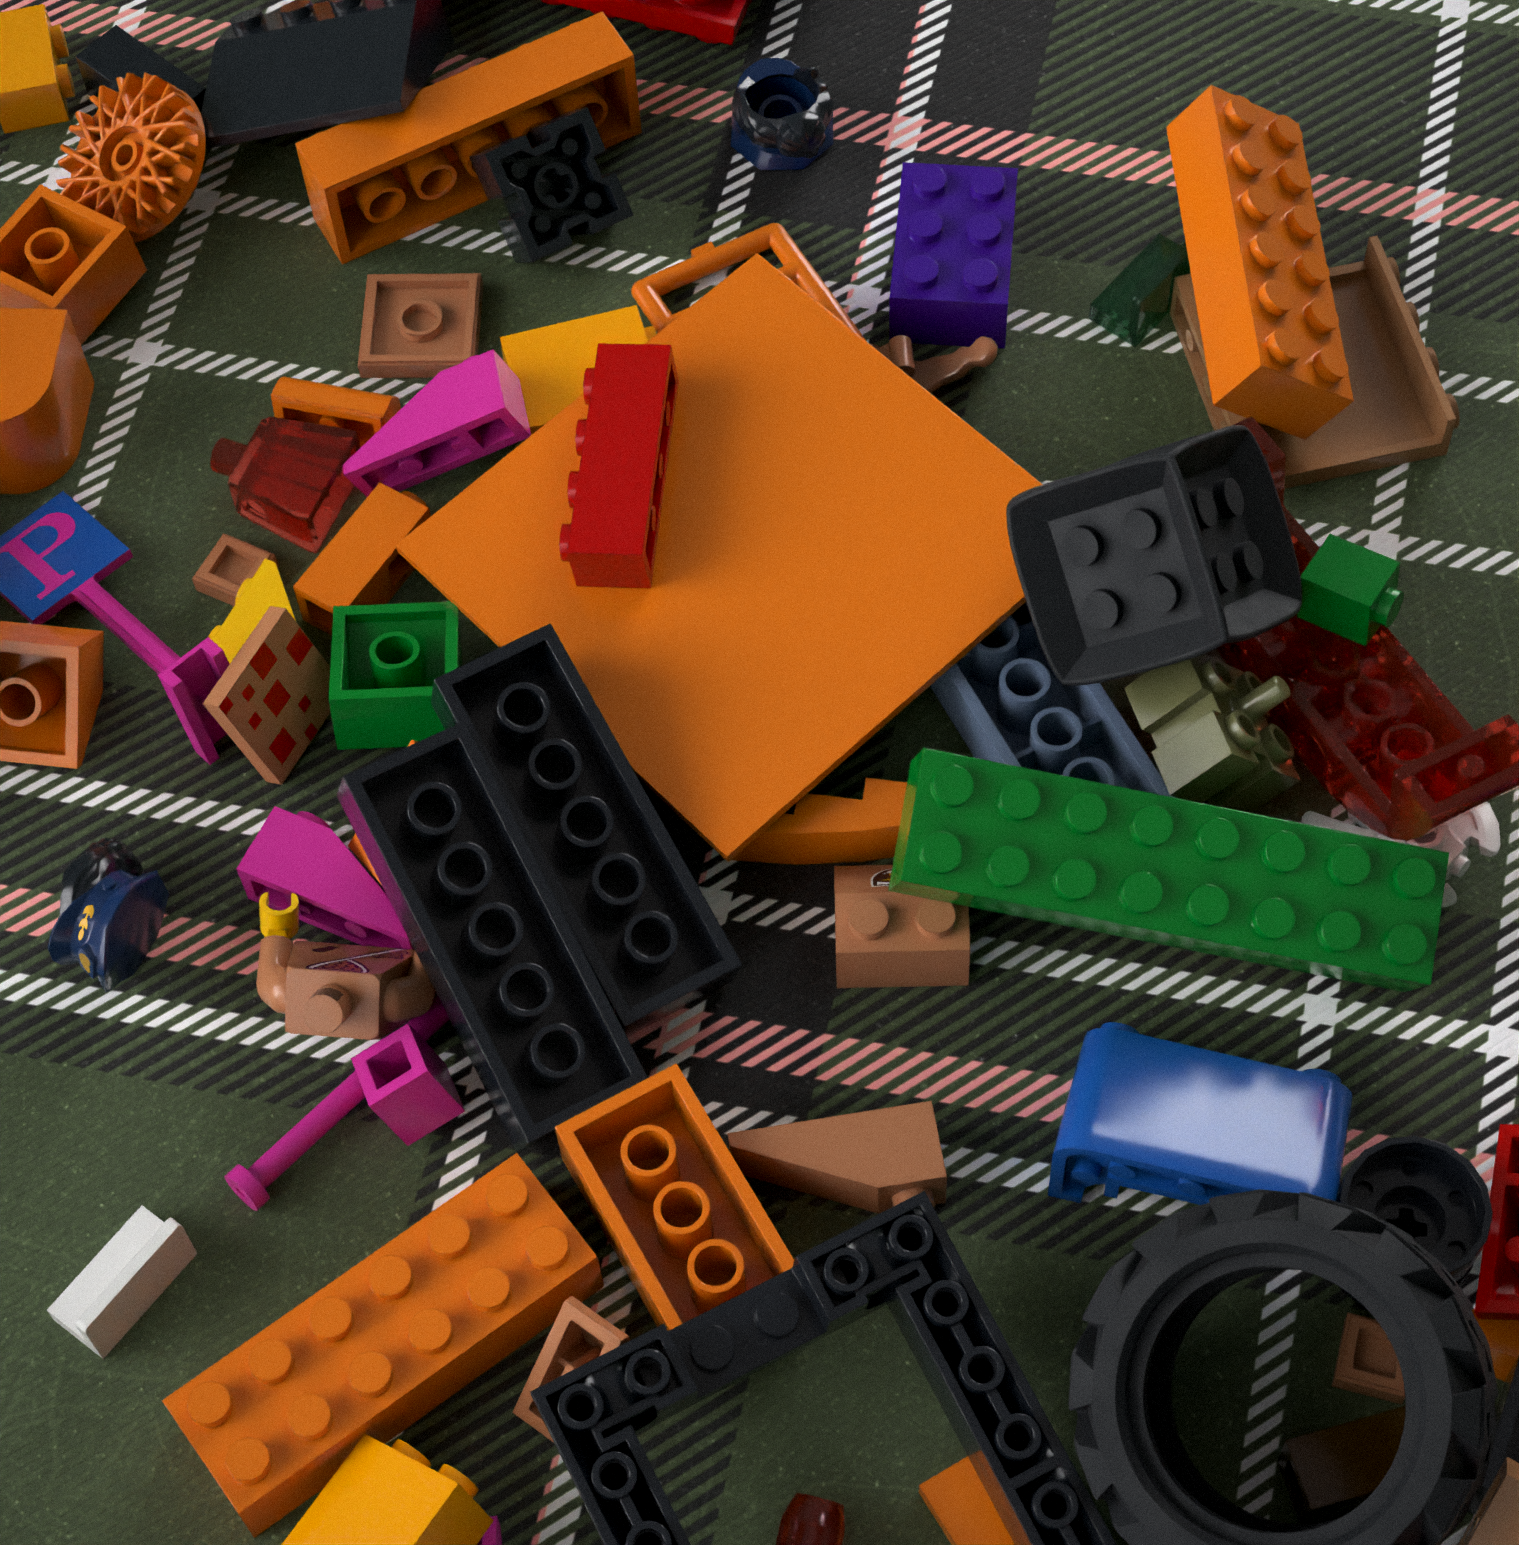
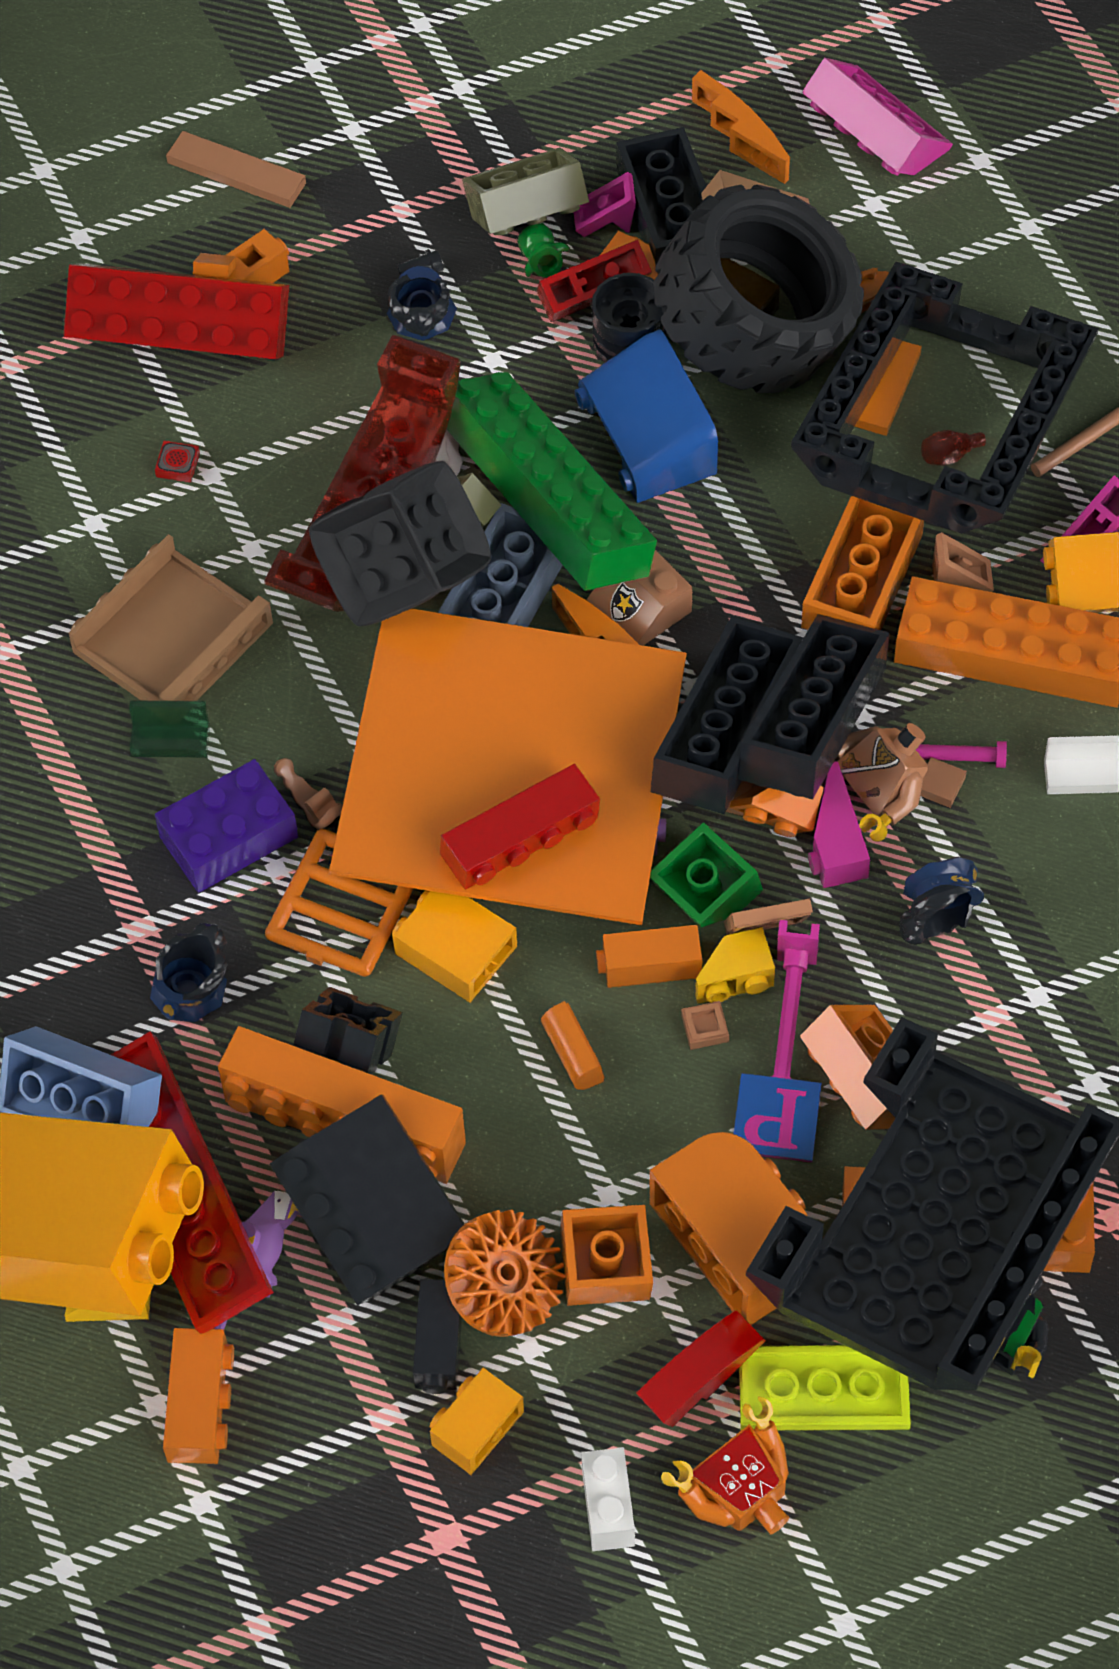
camera: 130 degrees left, 0 degrees up
(284, 1082) = (942, 782): none -> nougat tile
(289, 477) = (631, 1033): clear red torso -> none
(407, 1084) = (902, 708): dark pink brick -> none
(419, 323) = (476, 1062): nougat tile -> none
(445, 425) = (542, 959): dark pink slope -> none
(850, 1158) = (767, 531): nougat slope -> none
(1258, 264) = (138, 659): orange brick -> none
(1350, 590) = (331, 485): green brick -> none

